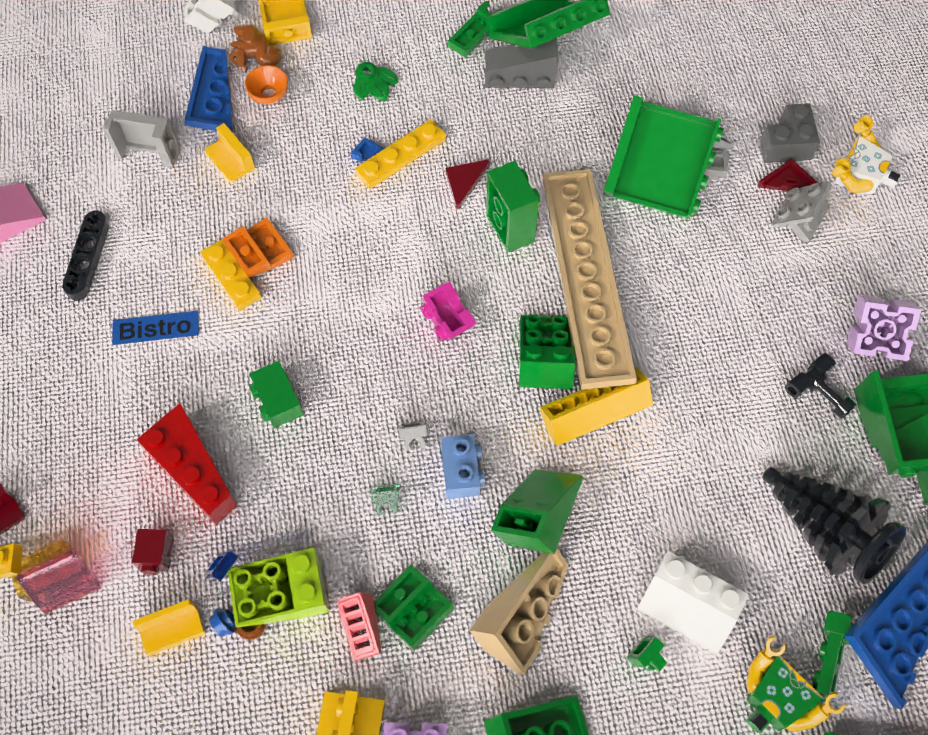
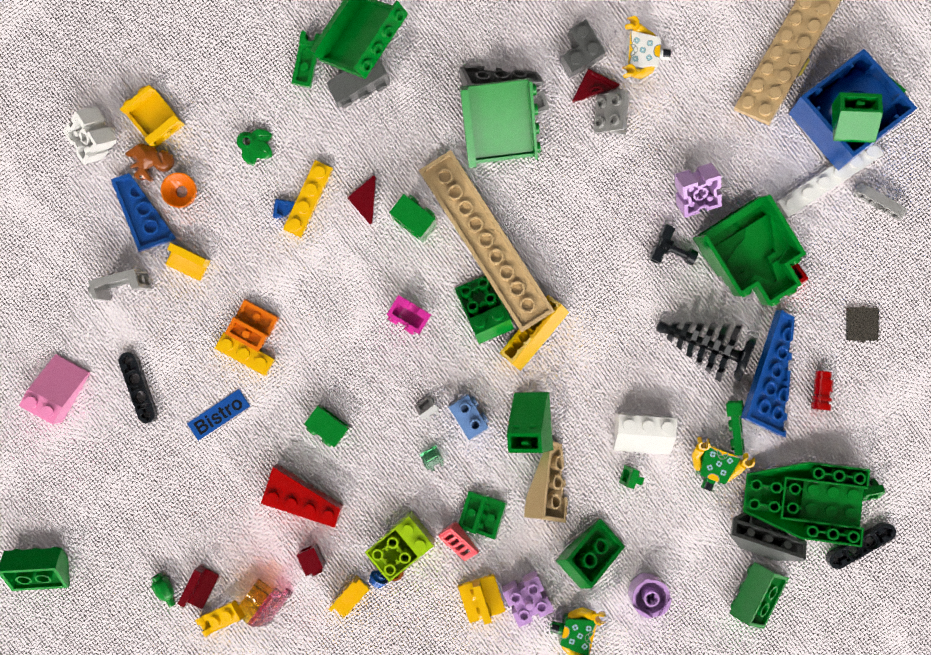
camera: 25 degrees left, 25 degrees up
(220, 566) = (359, 552): clear blue tile -> none

